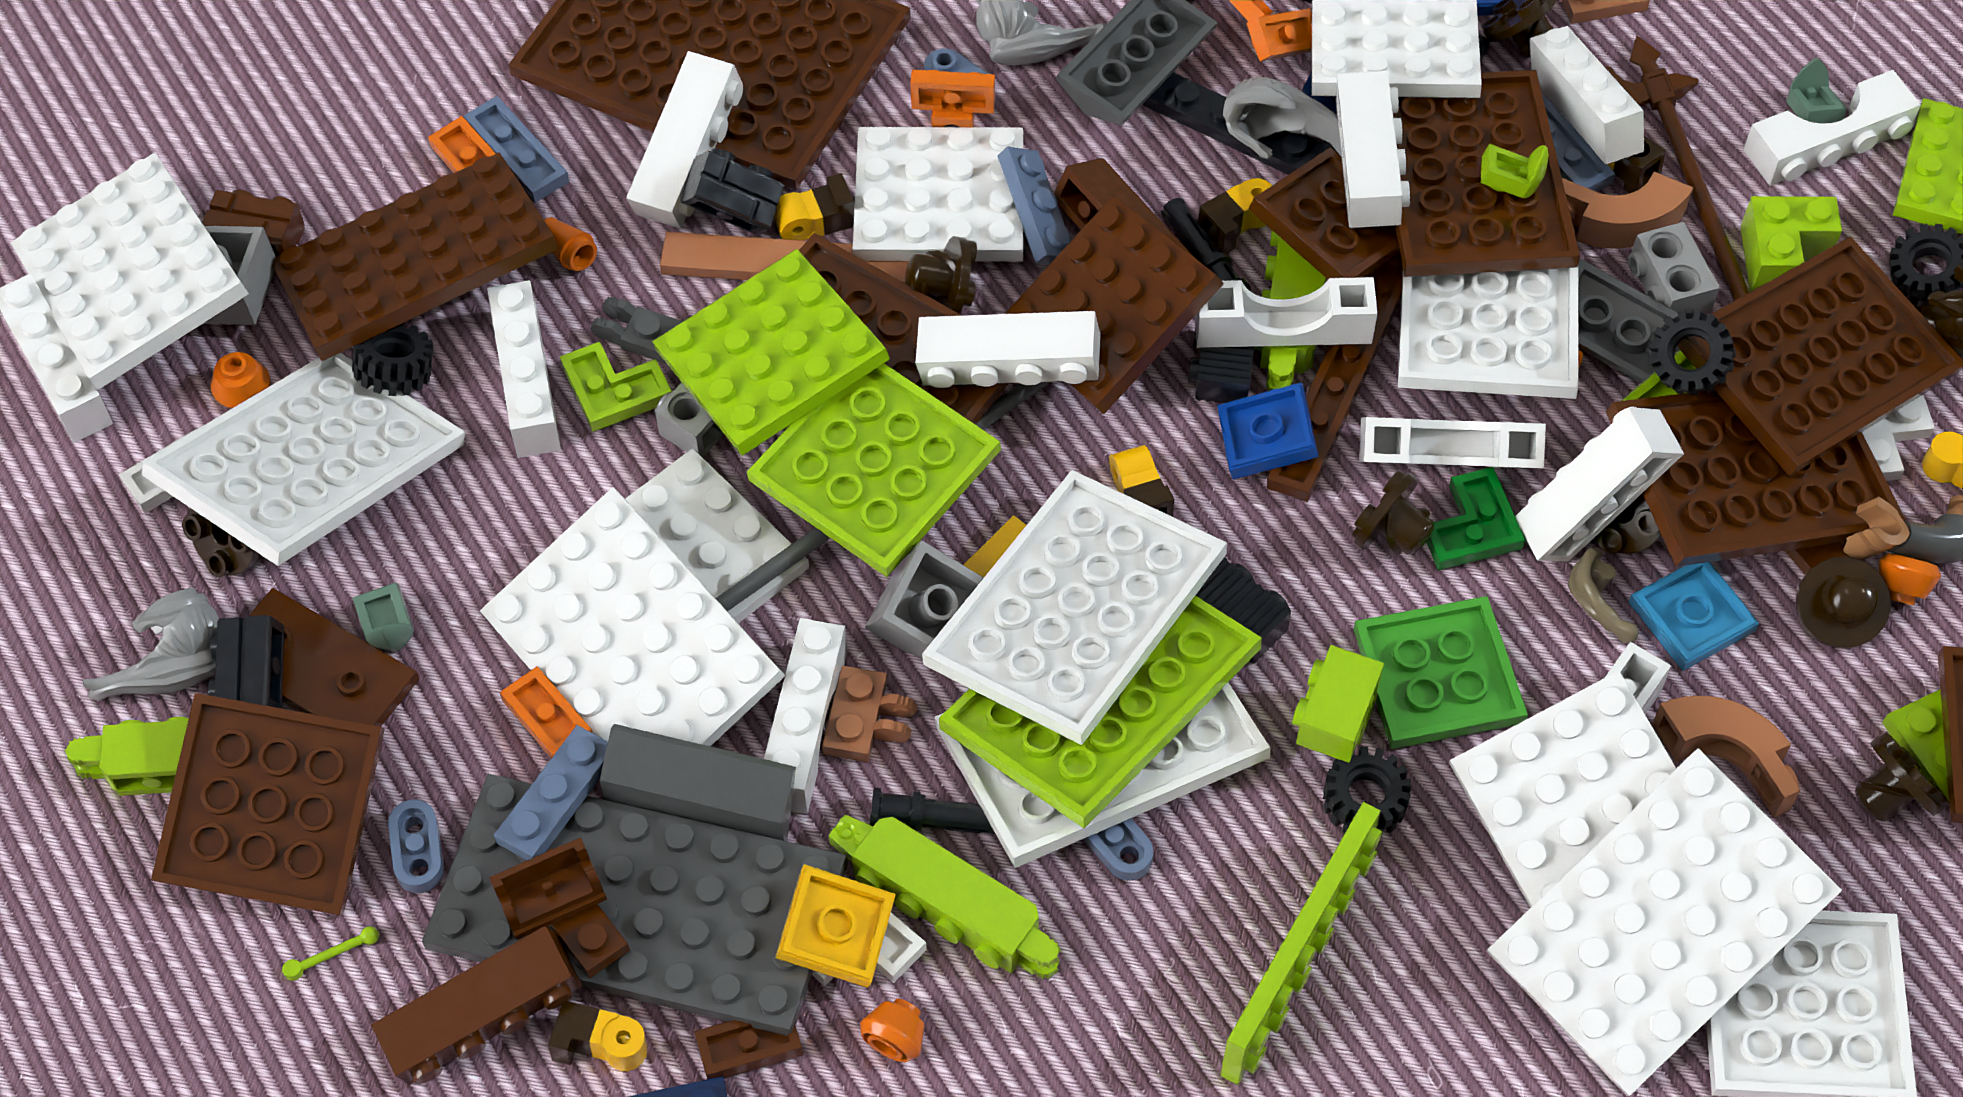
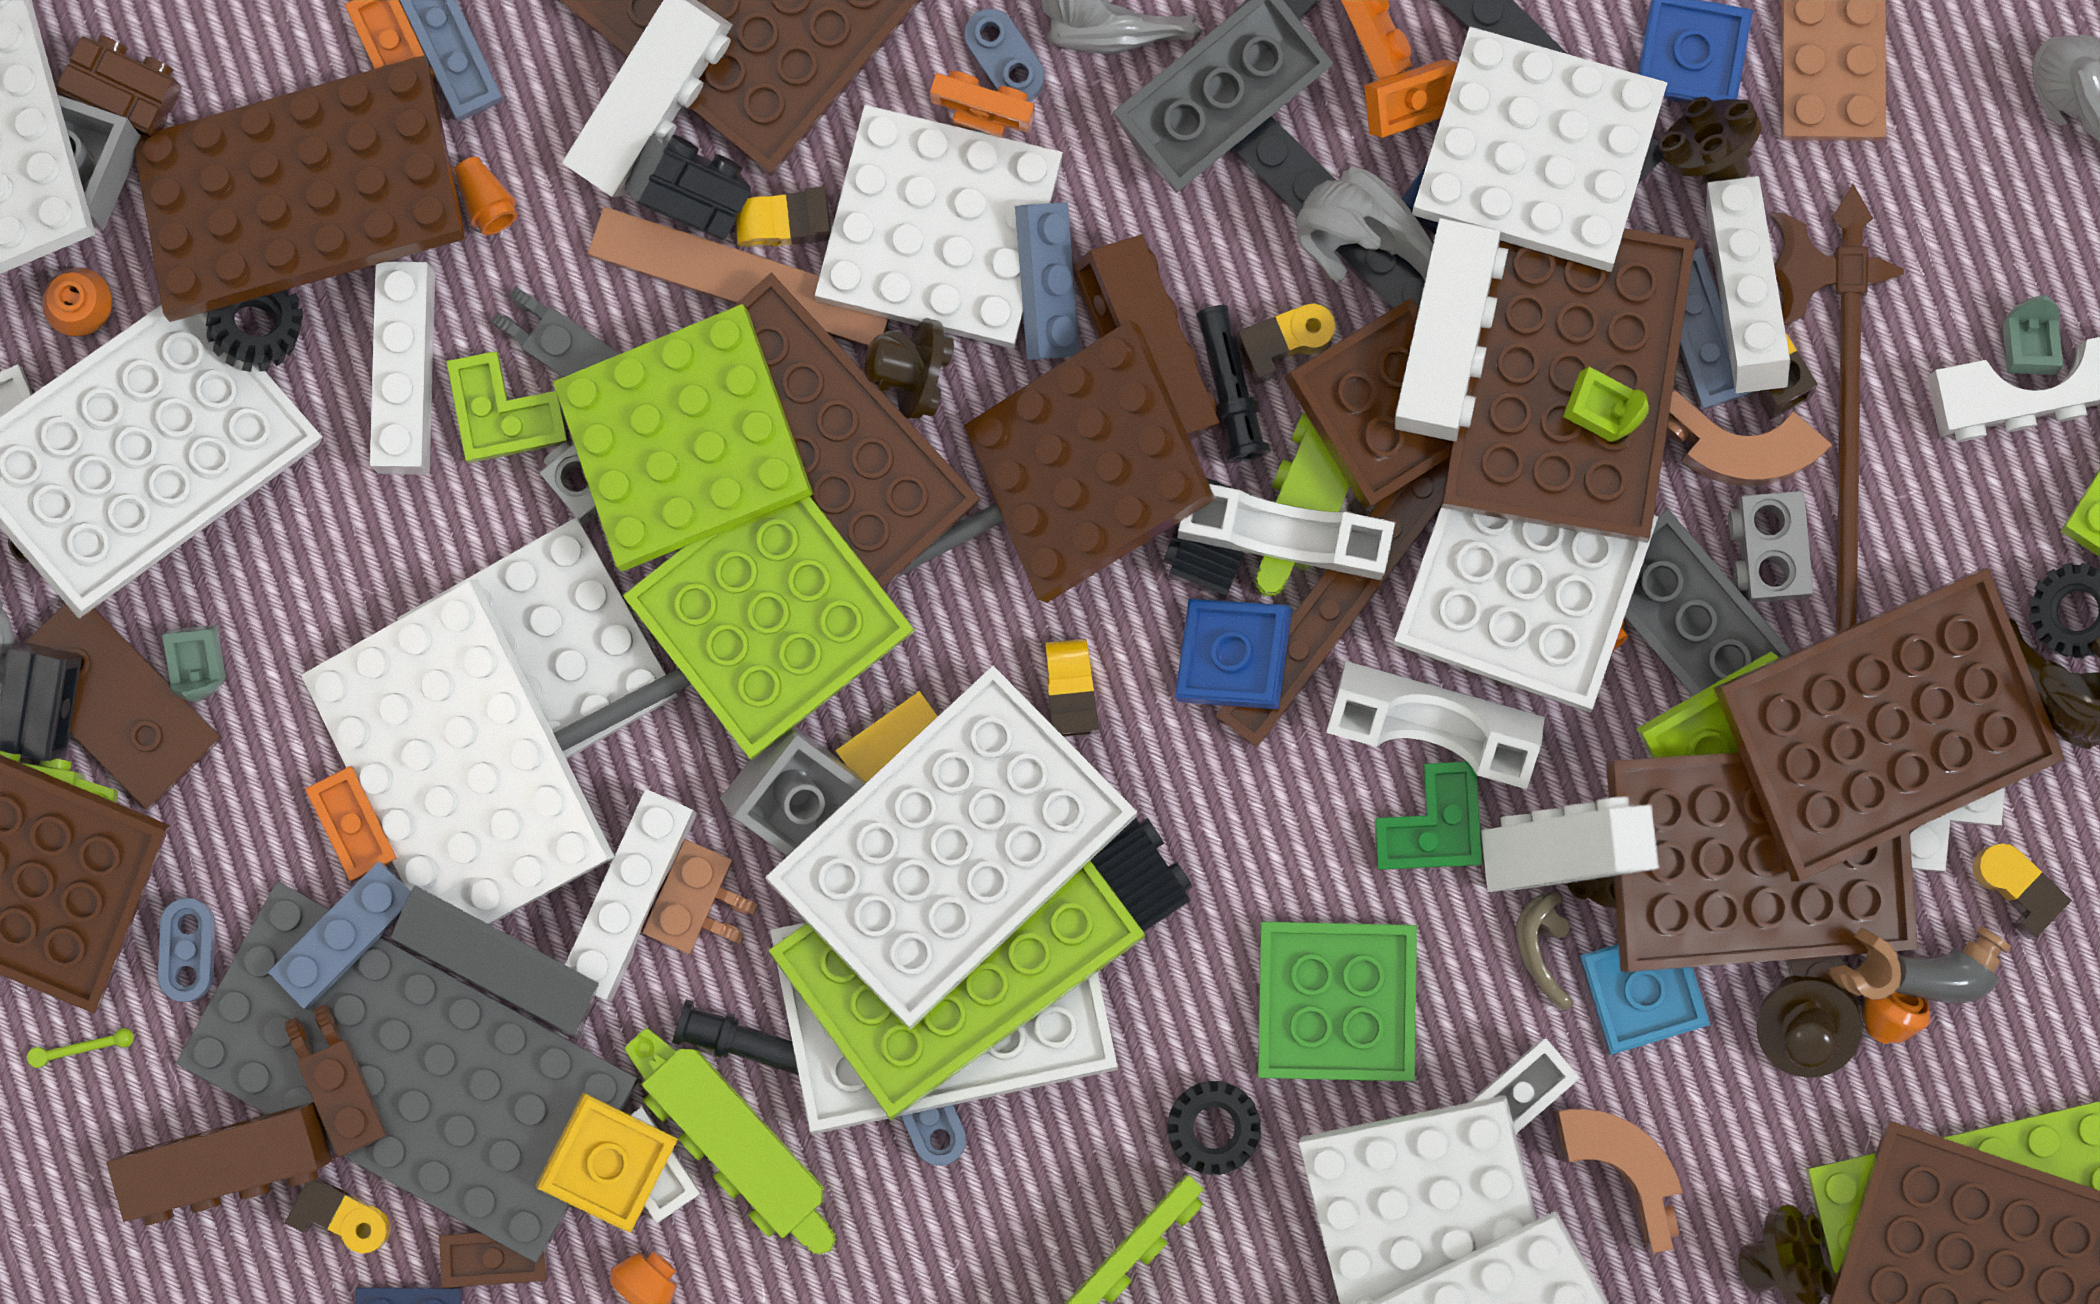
camera: 15 degrees right, 25 degrees up
(548, 888) = (311, 1068): reddish brown hinge -> none
(1008, 348) = (951, 512): white brick -> none
(1338, 703) = (1203, 1039): lime brick -> none
(1395, 518) = (1344, 815): dark brown plate -> none
(1684, 326) = (1700, 745): black tyre -> none
(1785, 233) = (1914, 523): lime brick -> none

